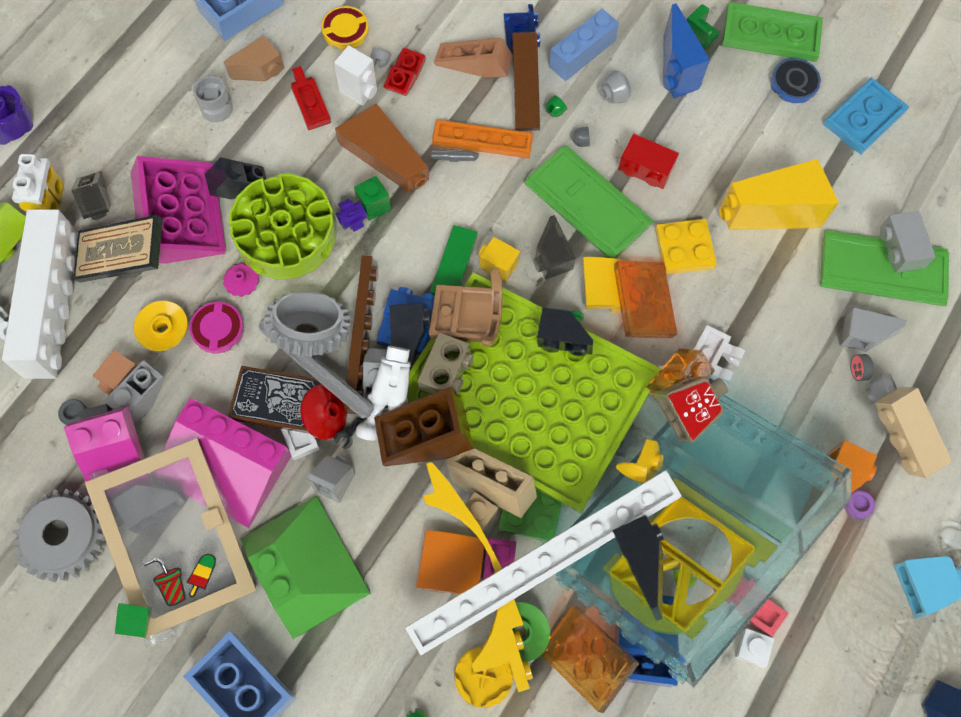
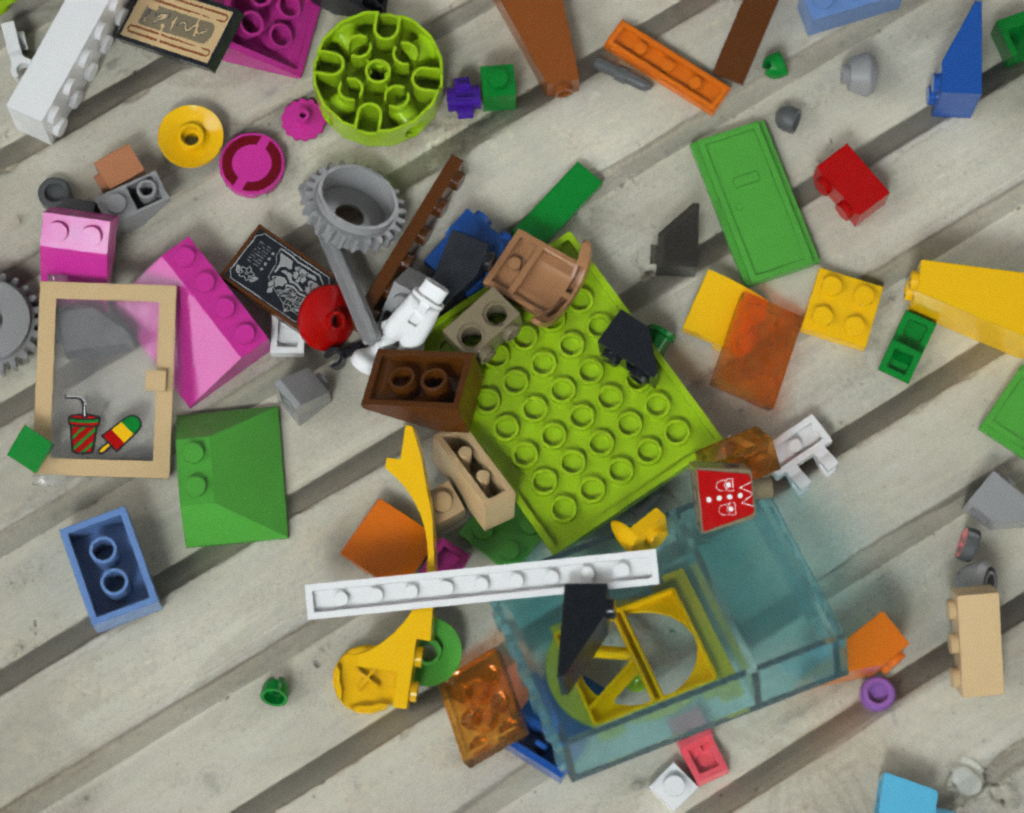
camera: 25 degrees right, 5 degrees up
(500, 256) = (610, 227): yellow brick -> none
(743, 252) = (907, 346): none -> green slope

